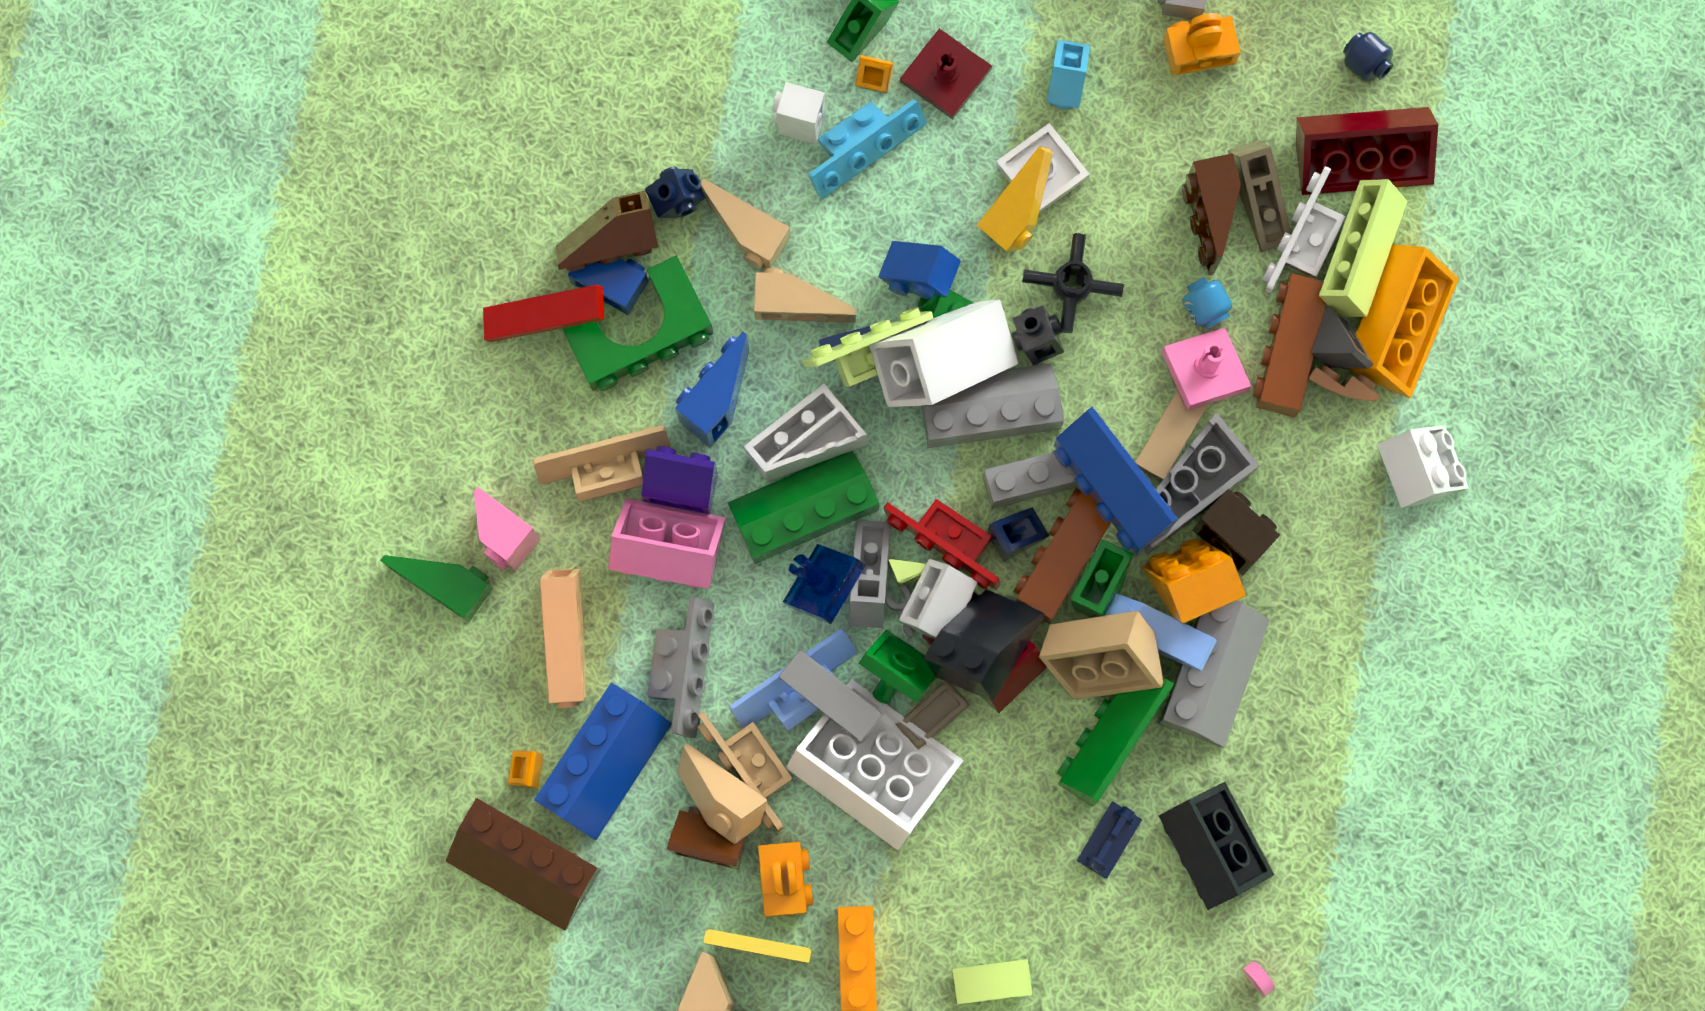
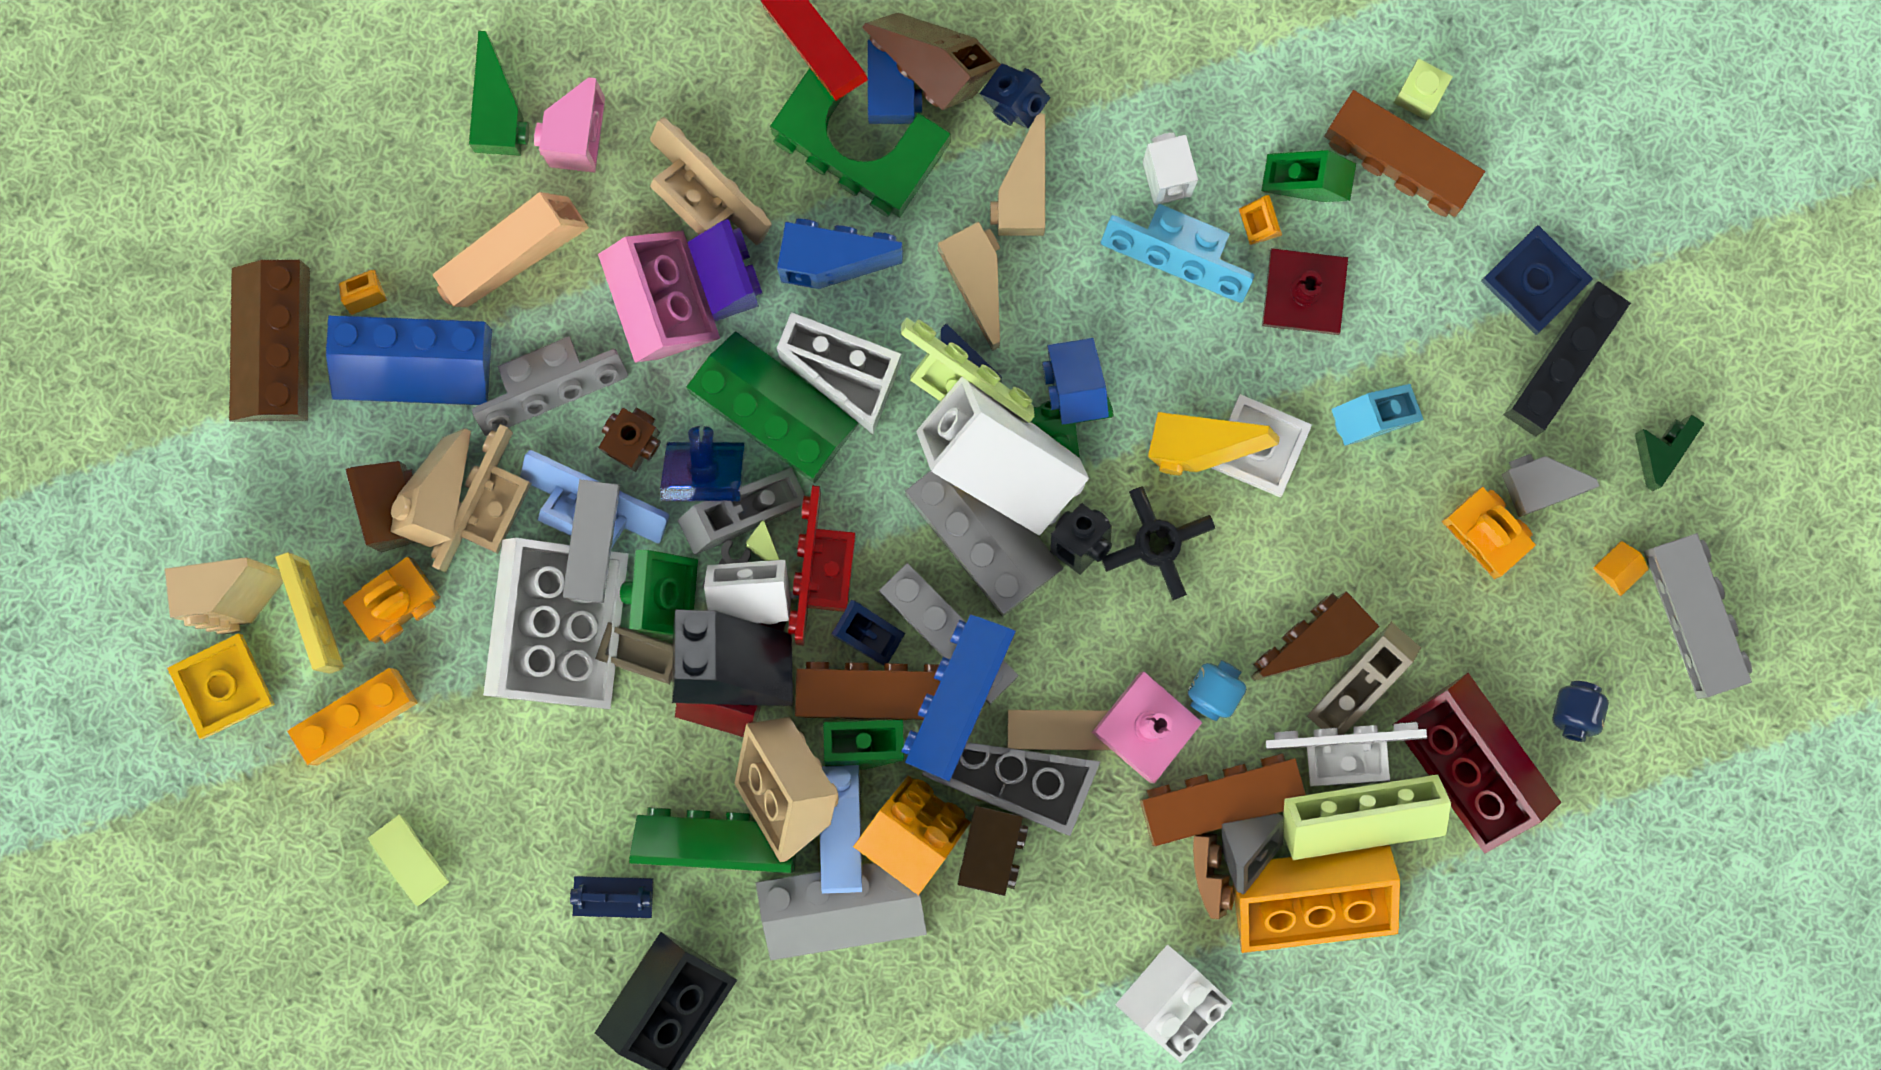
camera: 60 degrees right, 5 degrees up
(765, 637) = (630, 452): none -> reddish brown brick

